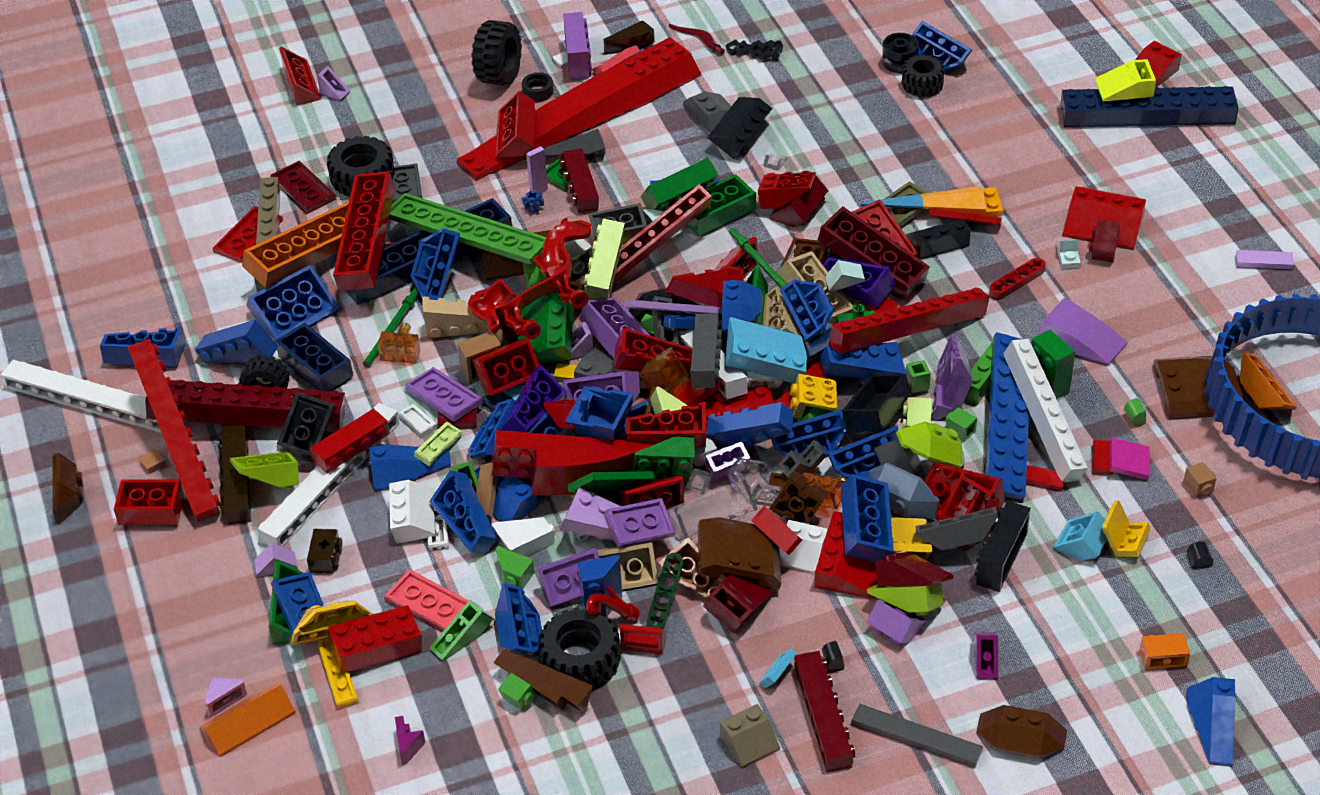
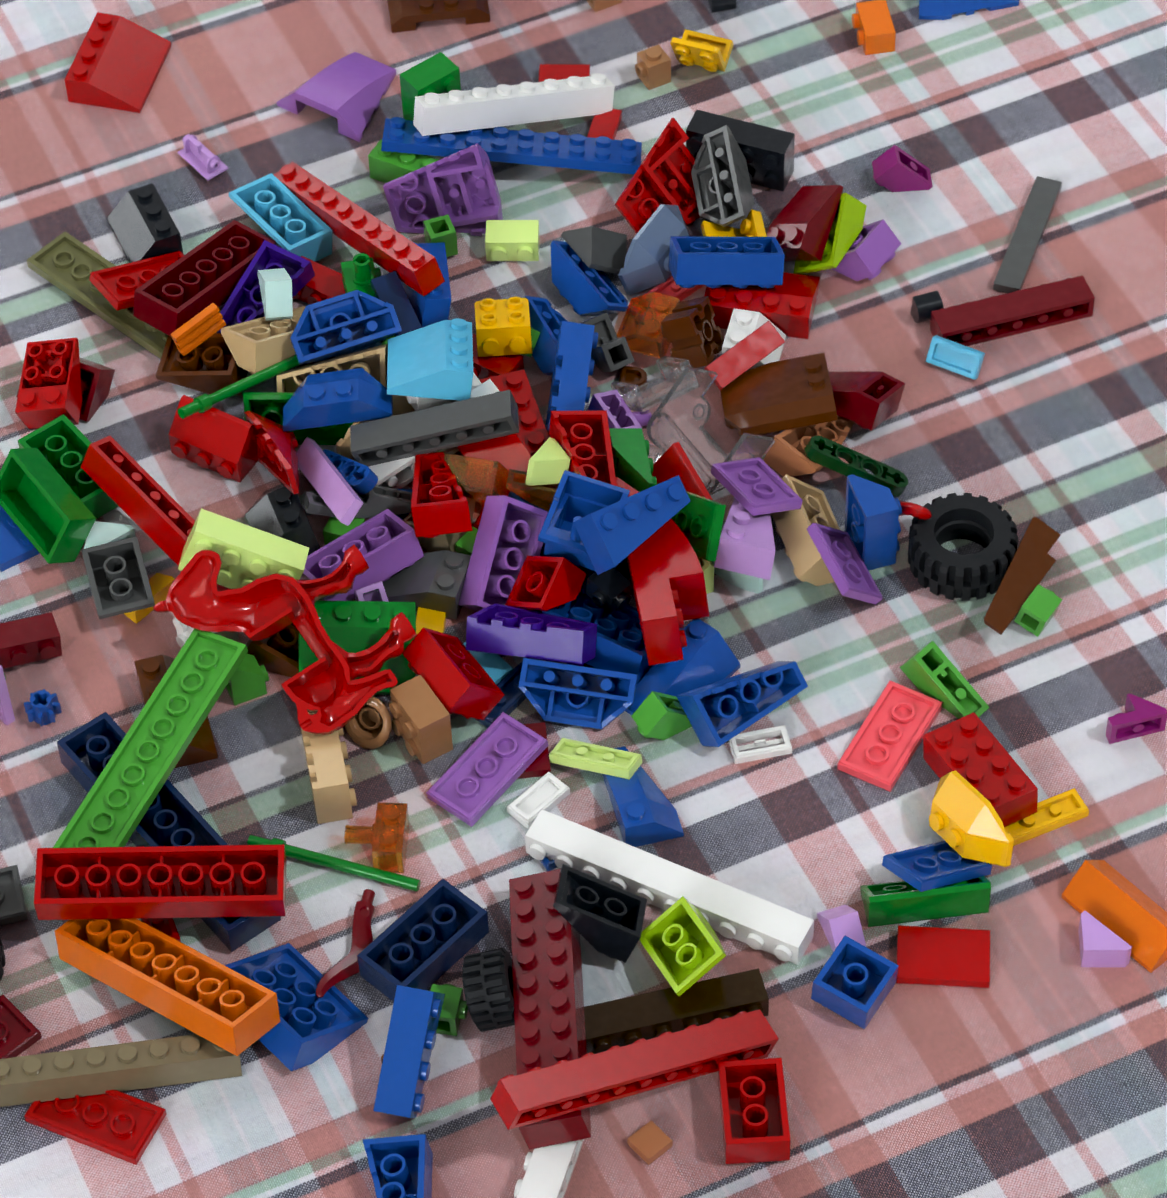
camera: 95 degrees left, 5 degrees up
(226, 557) = (854, 982): none -> blue brick
(241, 613) = (943, 956): none -> red tile
(324, 550) = (819, 868): dark brown brick -> none
(333, 338) = (360, 940): none -> dark red piece
(350, 440) = (622, 846): red brick -> none
(411, 512) = (735, 773): white slope -> none
(435, 263) = (220, 796): blue wedge -> none
(487, 489) = (678, 680): medium nougat tile -> none
(514, 567) = (825, 641): bright green slope -> none
(517, 620) = (938, 620): blue wedge -> none
(524, 535) = (768, 634): white slope -> none
(579, 422) = (624, 525): none -> blue wedge
(642, 639) = (926, 480): red tile -> none
(749, 736) = (1060, 380): dark tan slope -> none
(819, 246) = (198, 329): none -> orange tile
(876, 403) = (506, 265): black piece -> none
(933, 443) = (588, 202): lime wedge -> none
(941, 282) = (284, 217): none -> medium azure slope
(962, 423) = (521, 199): bright green brick -> none
(964, 200) = (72, 204): light orange plate -> none
(966, 216) = (106, 201): red tile -> none
(1010, 262) = (201, 158): none -> lavender hinge
(1021, 731) = (1014, 149): reddish brown wedge -> none
(1034, 269) = (229, 155): red beam -> none
(1068, 254) = (174, 104): light aqua slope -> none
(1082, 537) = (705, 89): medium azure slope -> none
(1104, 500) = (653, 67): none -> medium nougat brick
(1105, 240) = (170, 59): dark red brick -> none
(1129, 458) = (570, 50): dark pink tile -> none
(1135, 412) = (490, 41): bright green brick -> none

